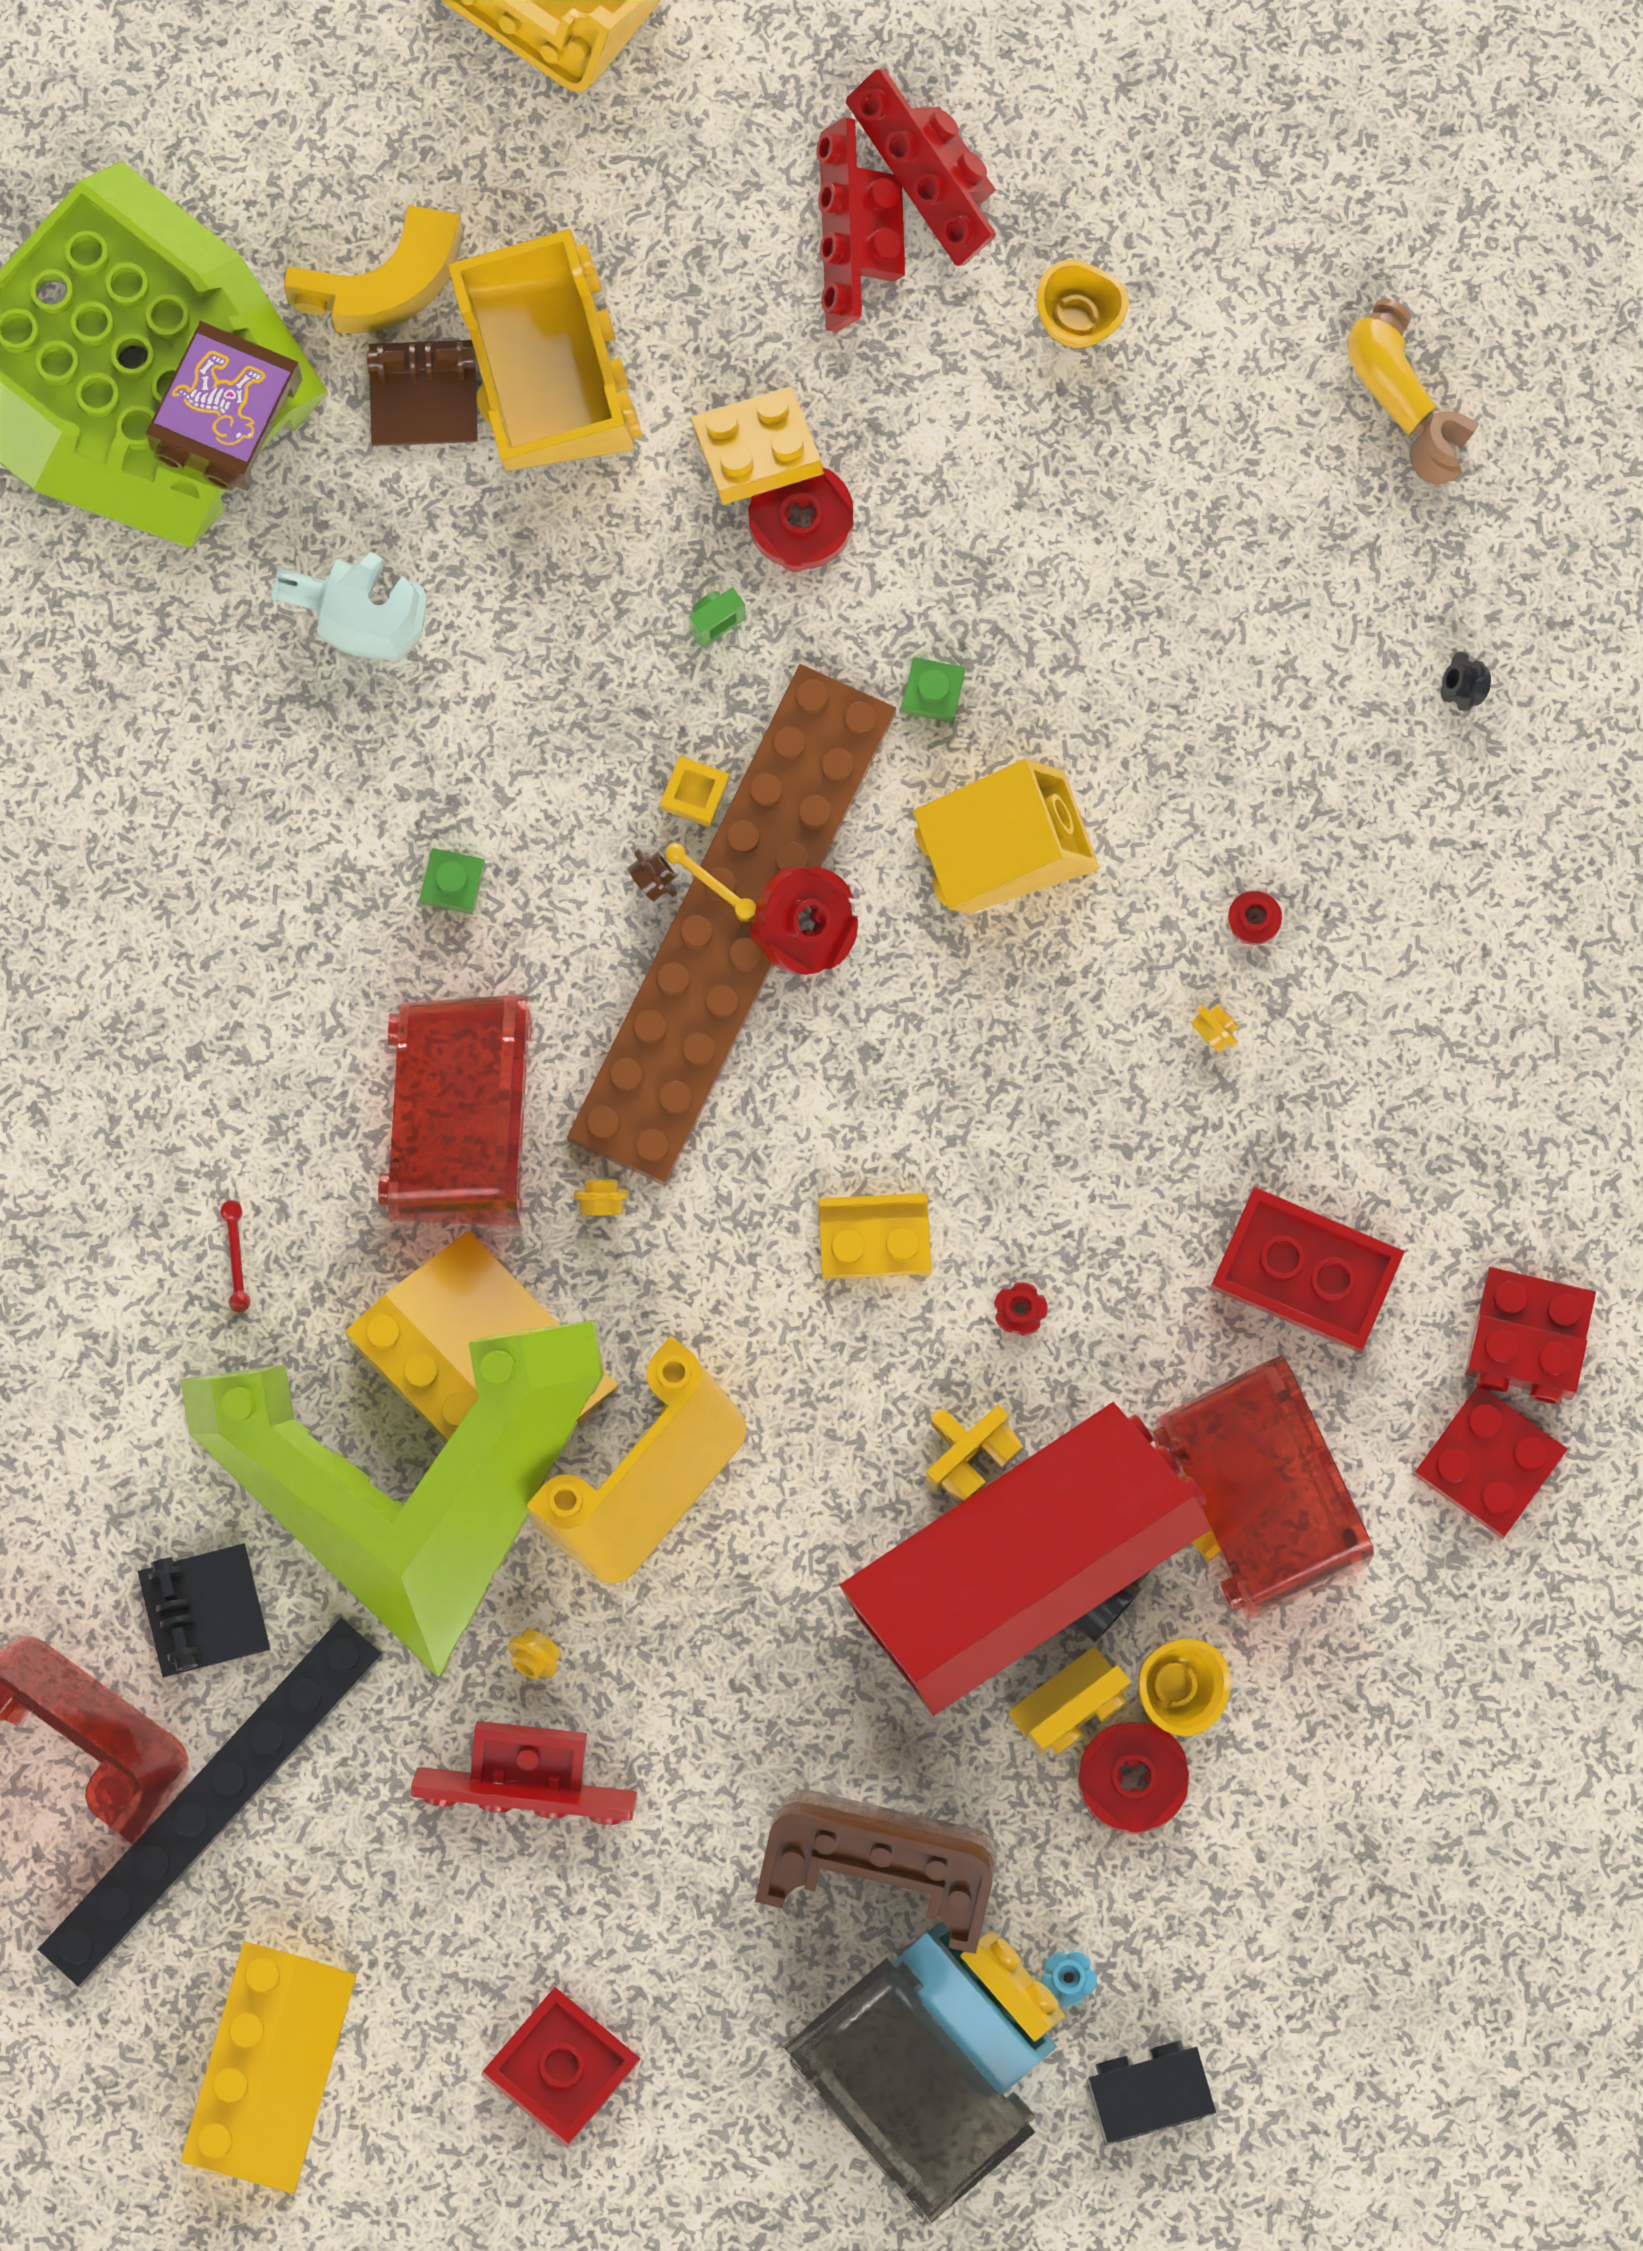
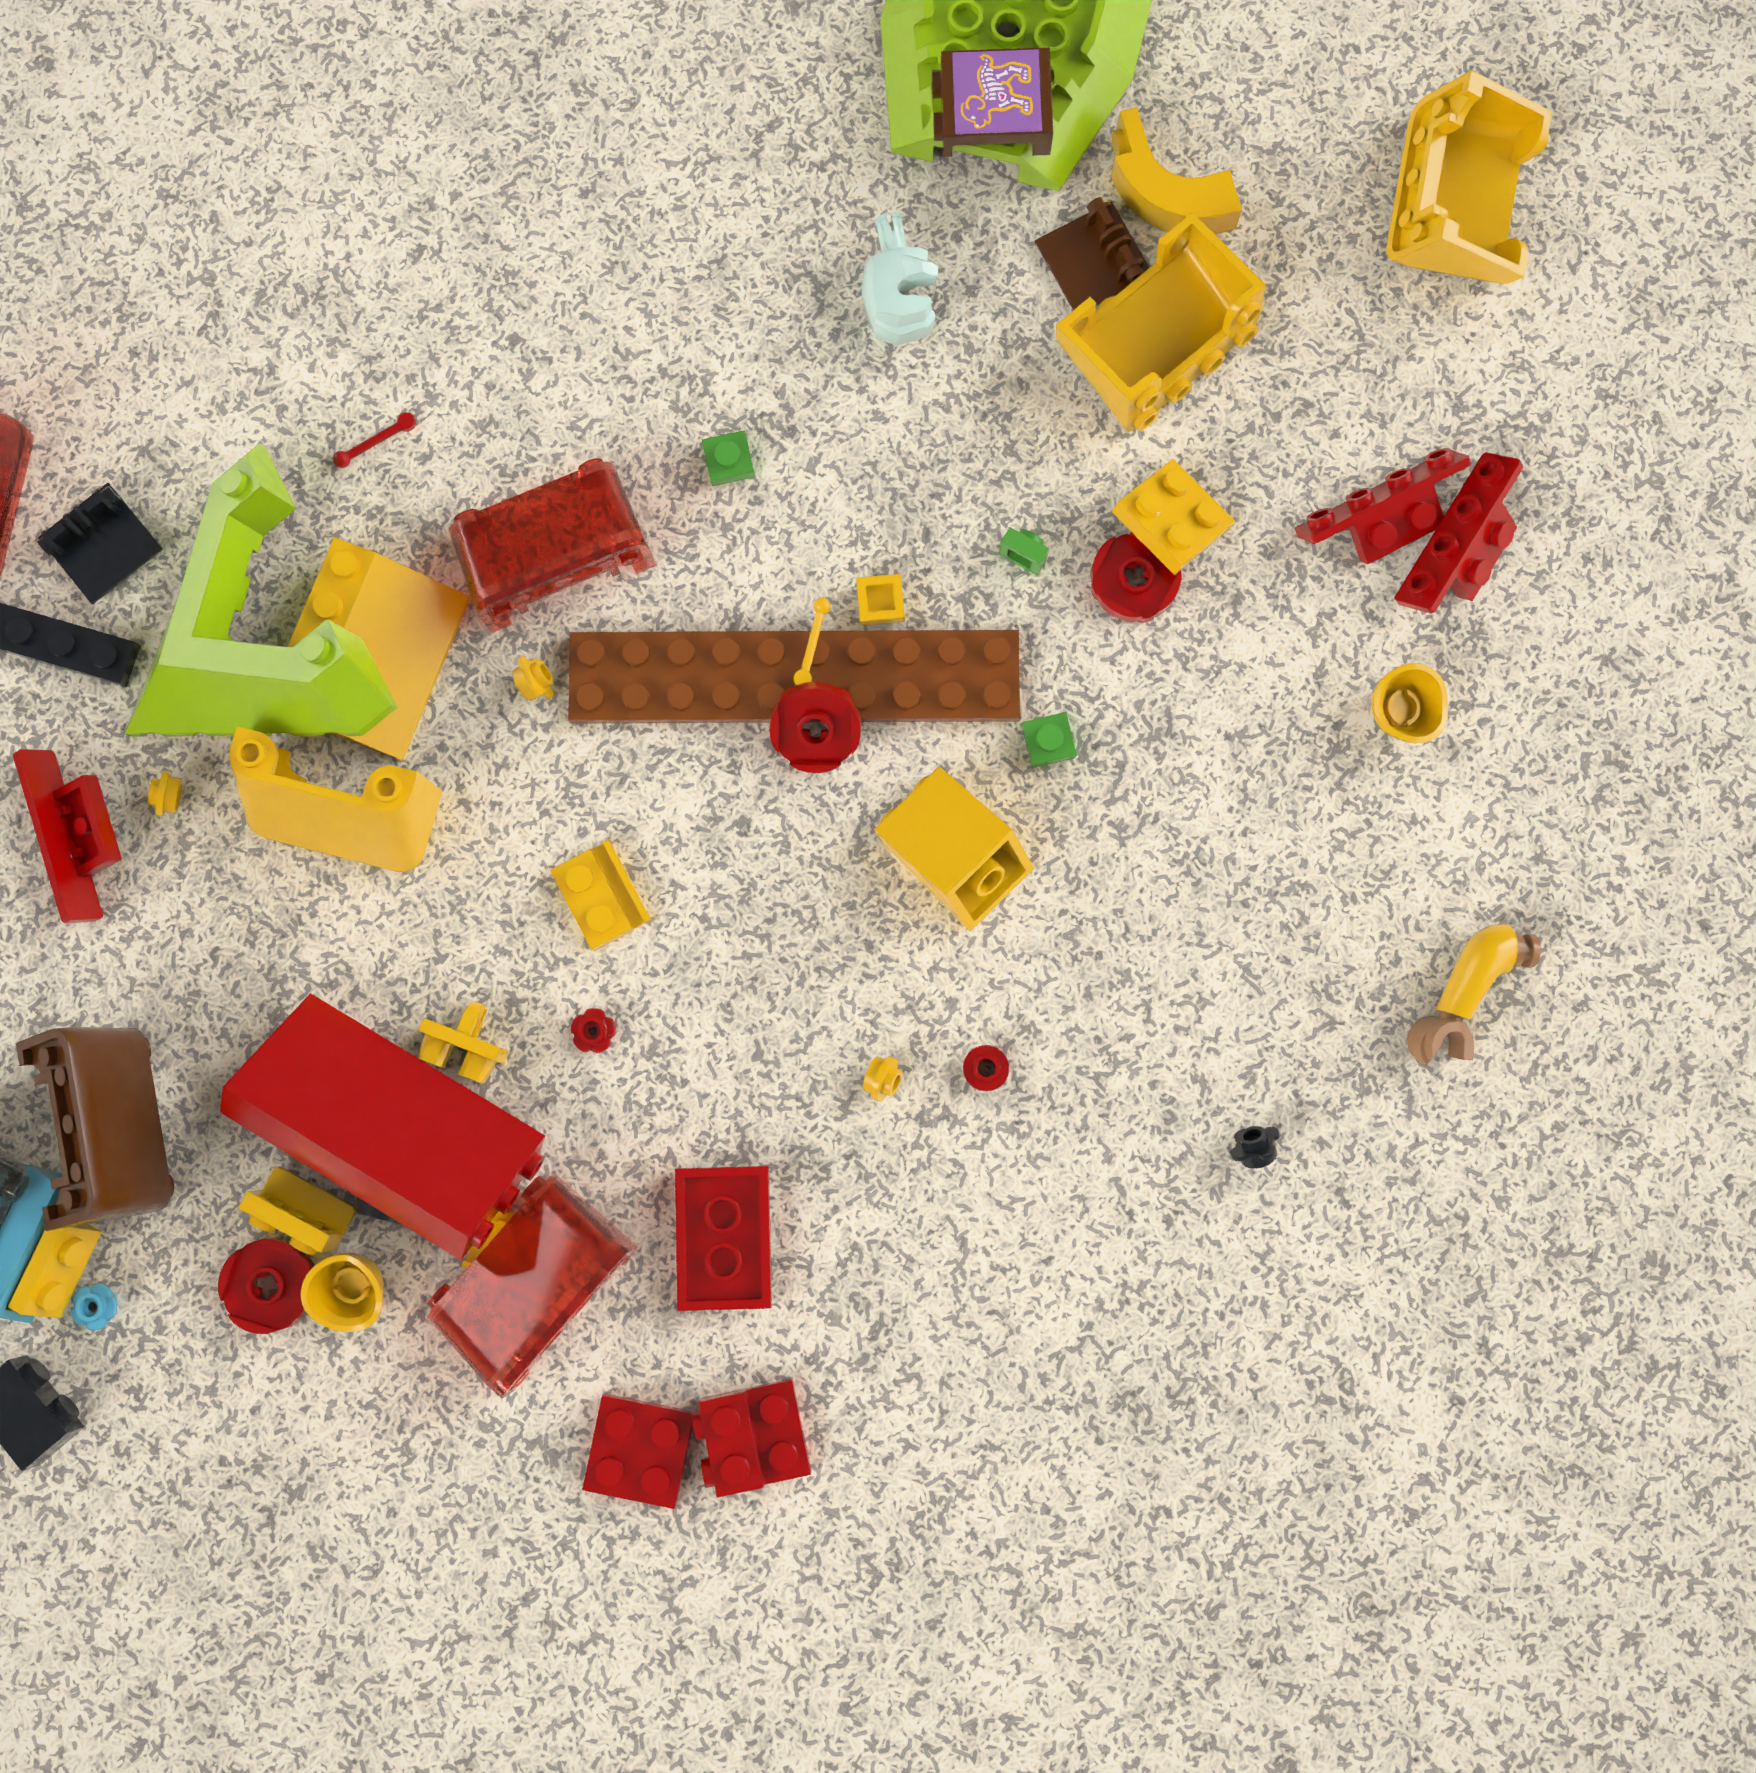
camera: 70 degrees right, 5 degrees up
(652, 875) = (798, 598): reddish brown plate -> none

